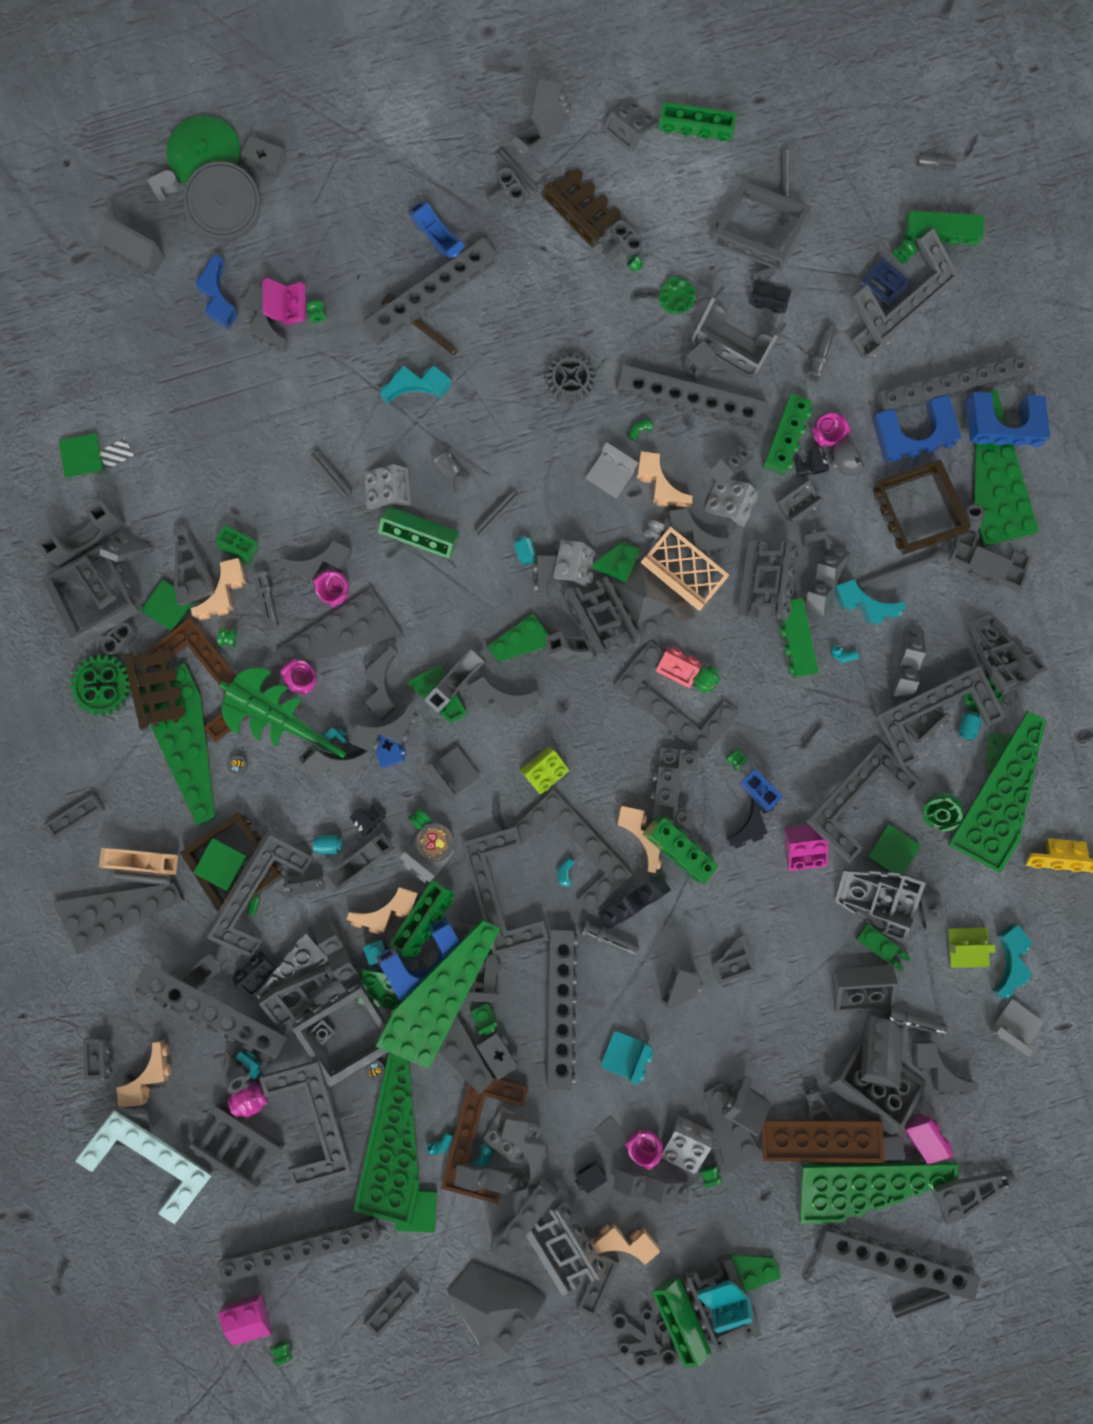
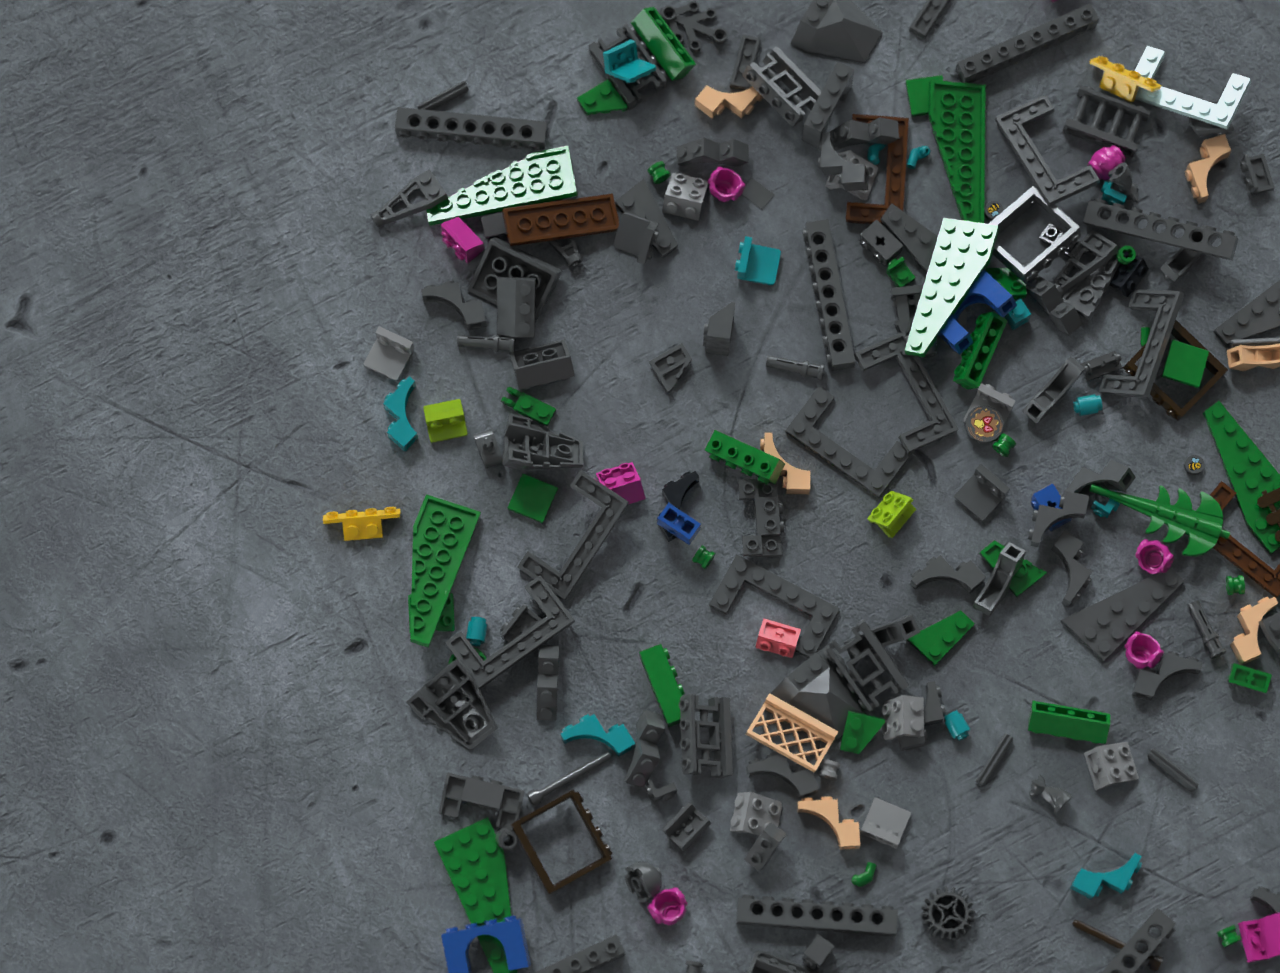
camera: 170 degrees right, 10 degrees down
(210, 1188) = (1122, 81): none -> yellow bracket
(245, 992) = (1130, 250): none -> green bush
(365, 822) = (1056, 432): black piece -> none
(378, 921) = (1022, 344): light nougat arch -> none
(563, 874) = (852, 417): teal arm -> none
(590, 1177) = (770, 152): black brick -> none
(634, 901) = (778, 403): black arch -> none
(706, 679) = (748, 629): green head -> none
(787, 434) = (710, 896): green brick -> none
(817, 462) = (674, 871): black piece -> none
(843, 656) = (615, 679): teal arm -> none
(896, 445) = (595, 904): blue arch -> none
(942, 811) = (493, 541): green cylinder -> none

